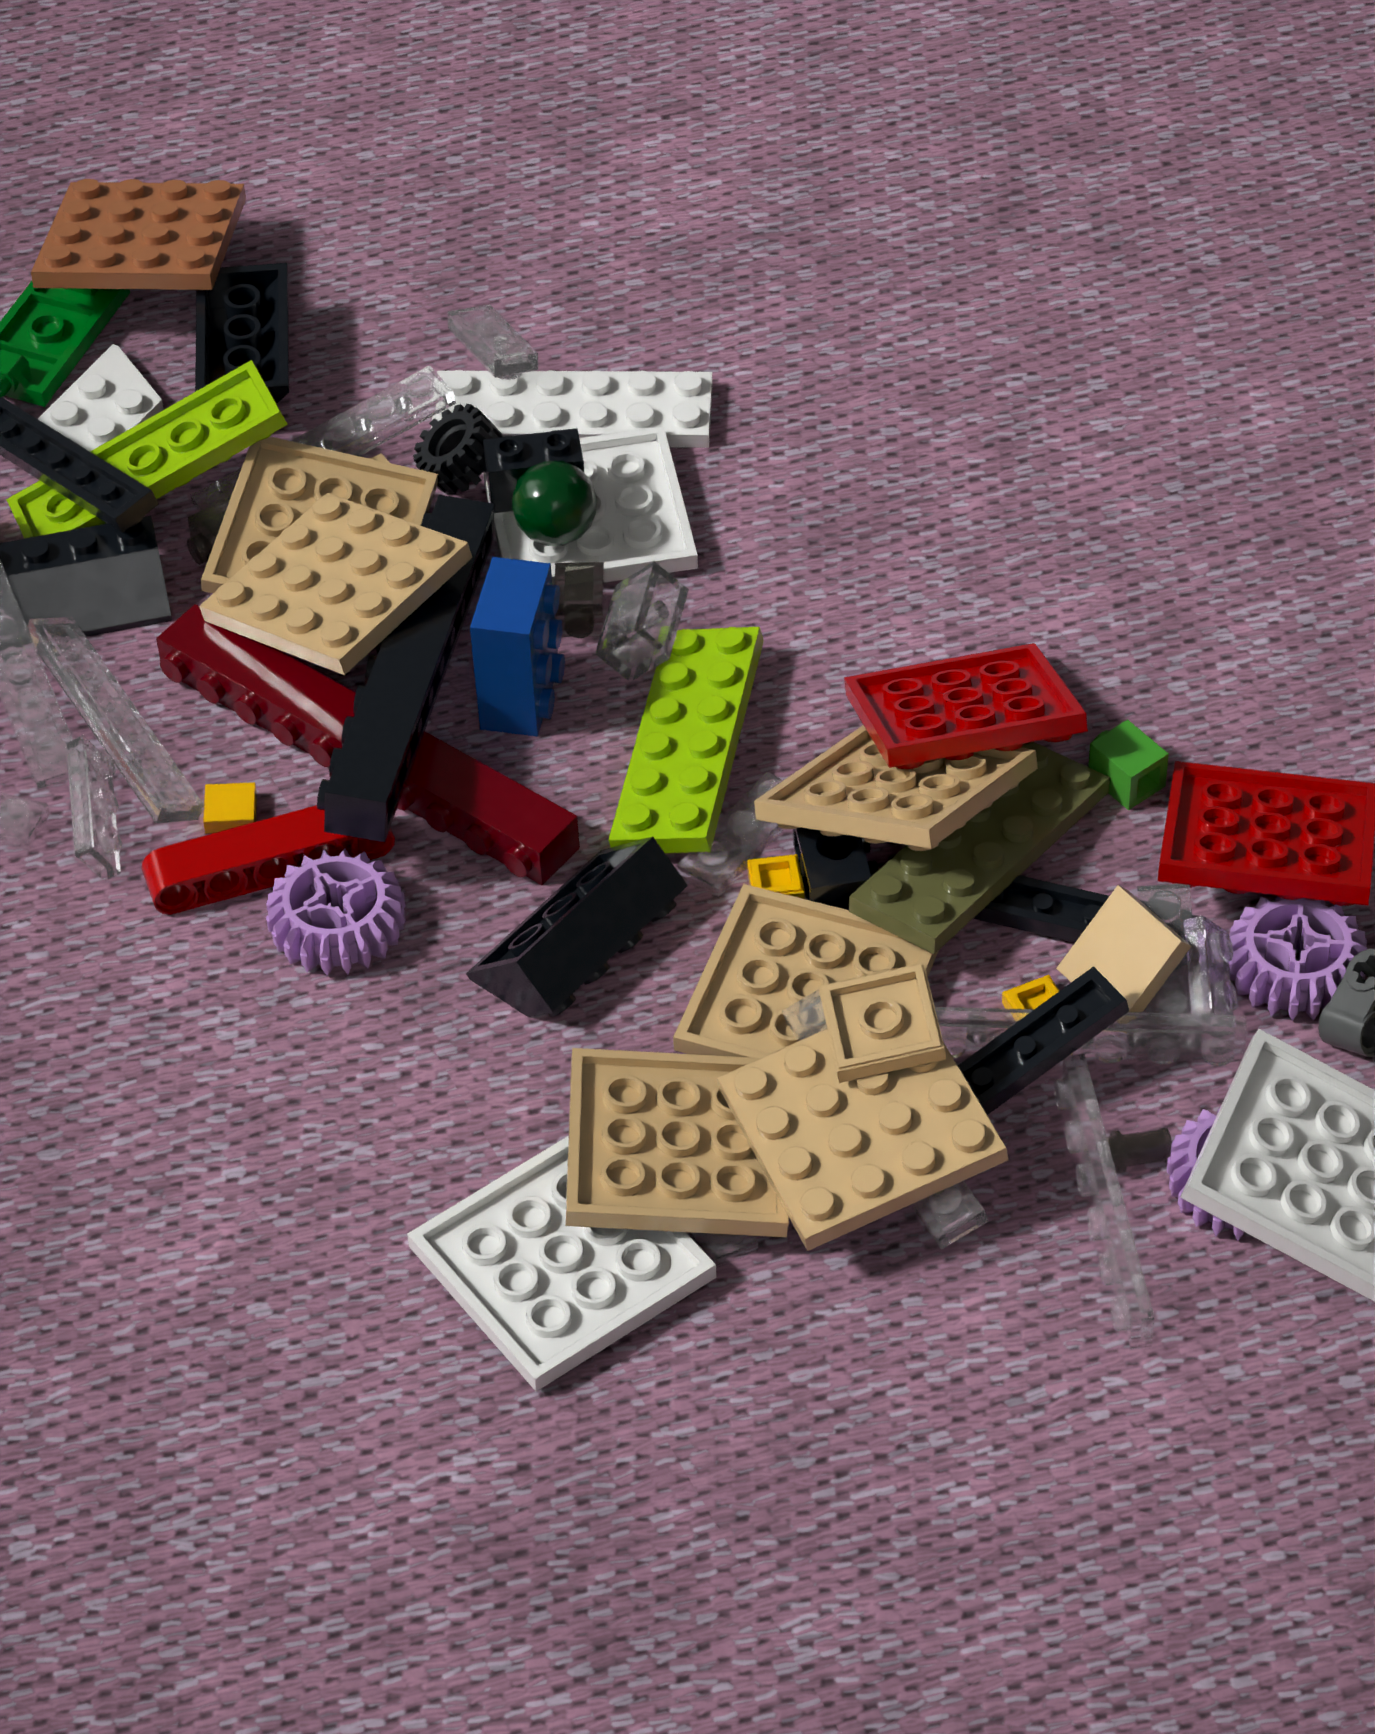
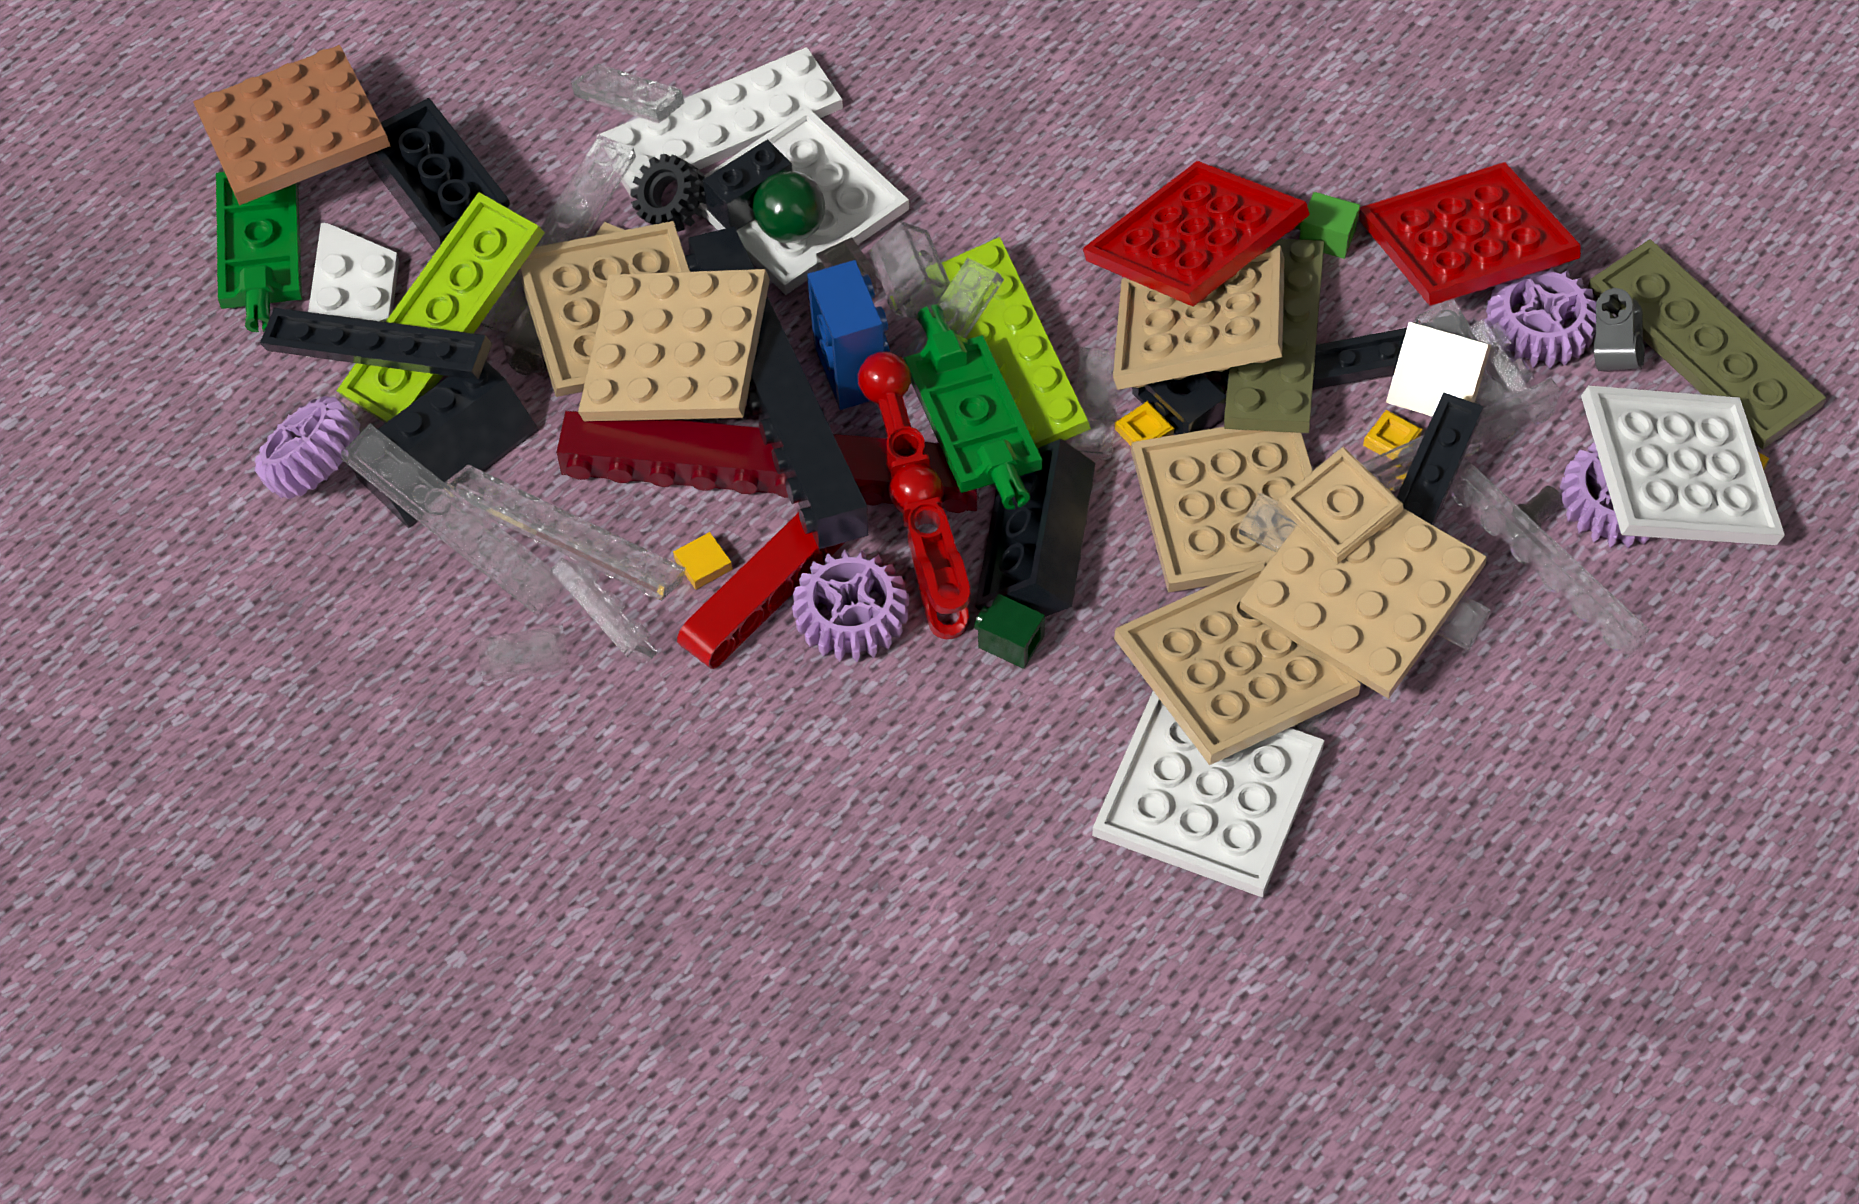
camera: 30 degrees left, 10 degrees up
(466, 825) = (918, 495): none -> red piece
(476, 1009) = (1010, 630): none -> dark green brick
(586, 772) = (972, 411): none -> green plate
(646, 683) = (963, 301): none -> clear plate

